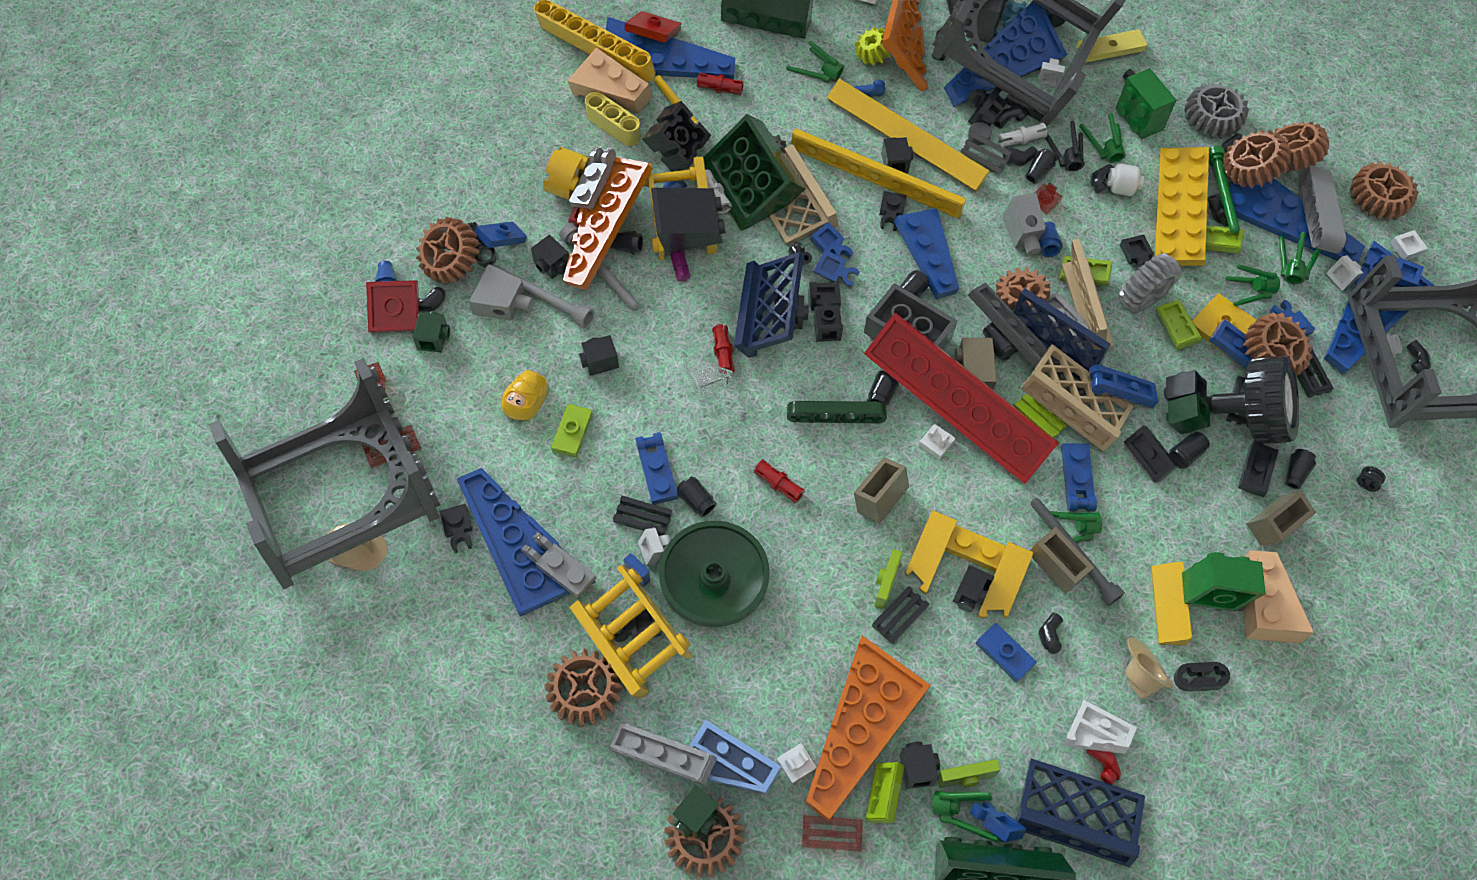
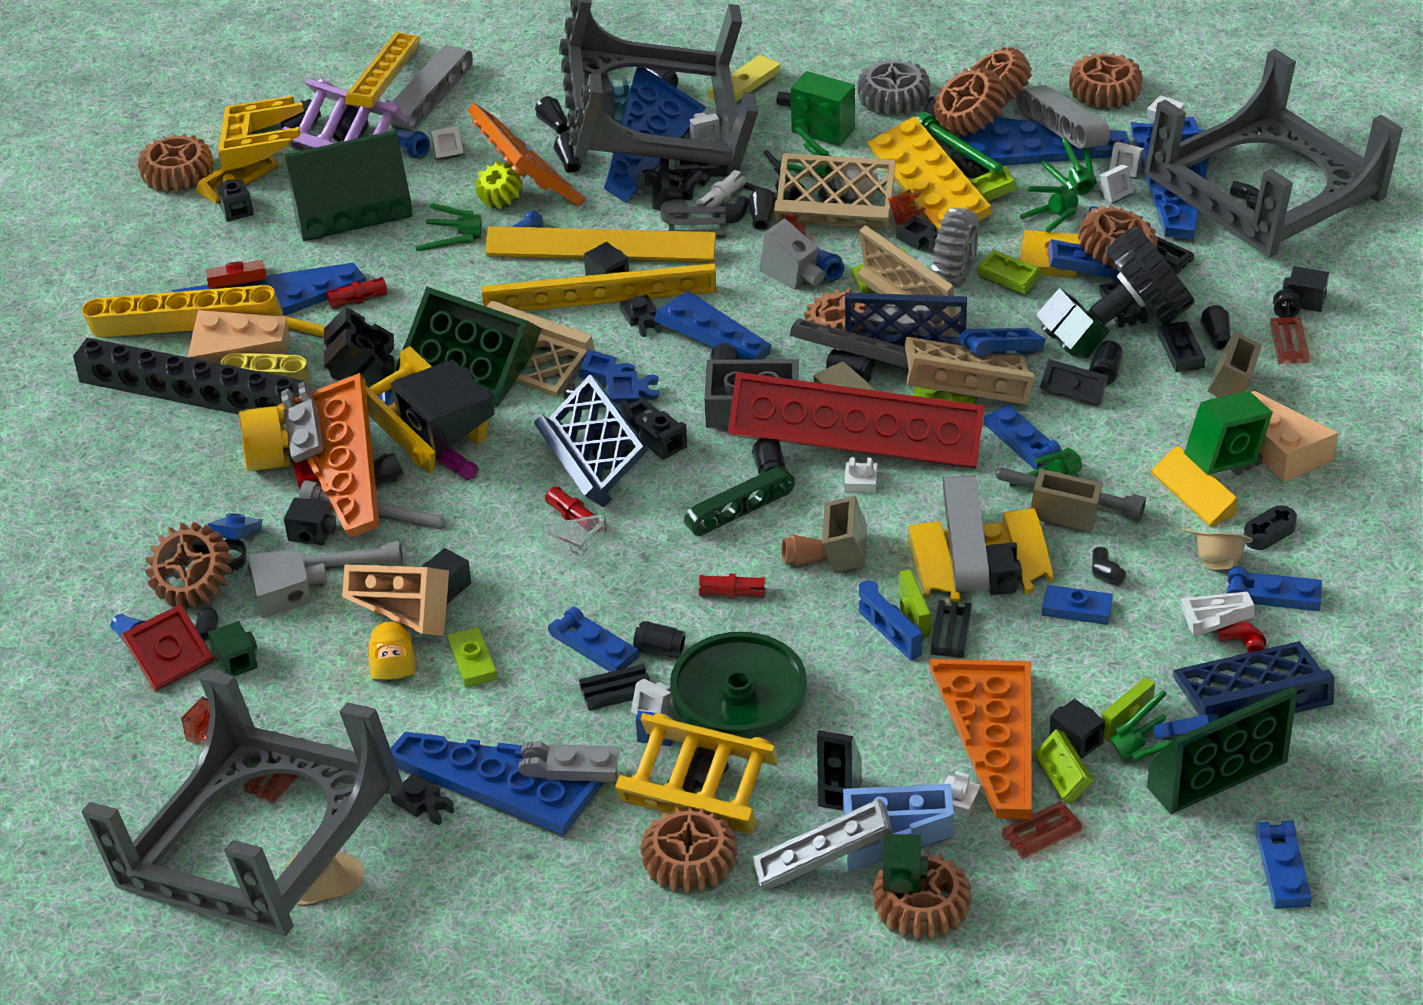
camera: 30 degrees left, 20 degrees down
(557, 356) = (402, 593): none -> light nougat wedge
(559, 94) = (179, 377): none -> black brick
(720, 696) = (837, 768): none -> black slope
(845, 480) = (802, 550): none -> nougat cone
(860, 580) = (889, 620): none -> blue plate
(963, 546) = (966, 534): none -> light grey beam
(1089, 200) = (835, 213): none -> tan fence
(1142, 223) = (904, 207): none -> clear red tile
(1163, 736) = (1276, 589): none -> blue plate
(1319, 290) = (1115, 183): none -> white tile
(1340, 527) = (1290, 354): none -> clear red tile
(1399, 474) = (1310, 286): none -> black brick

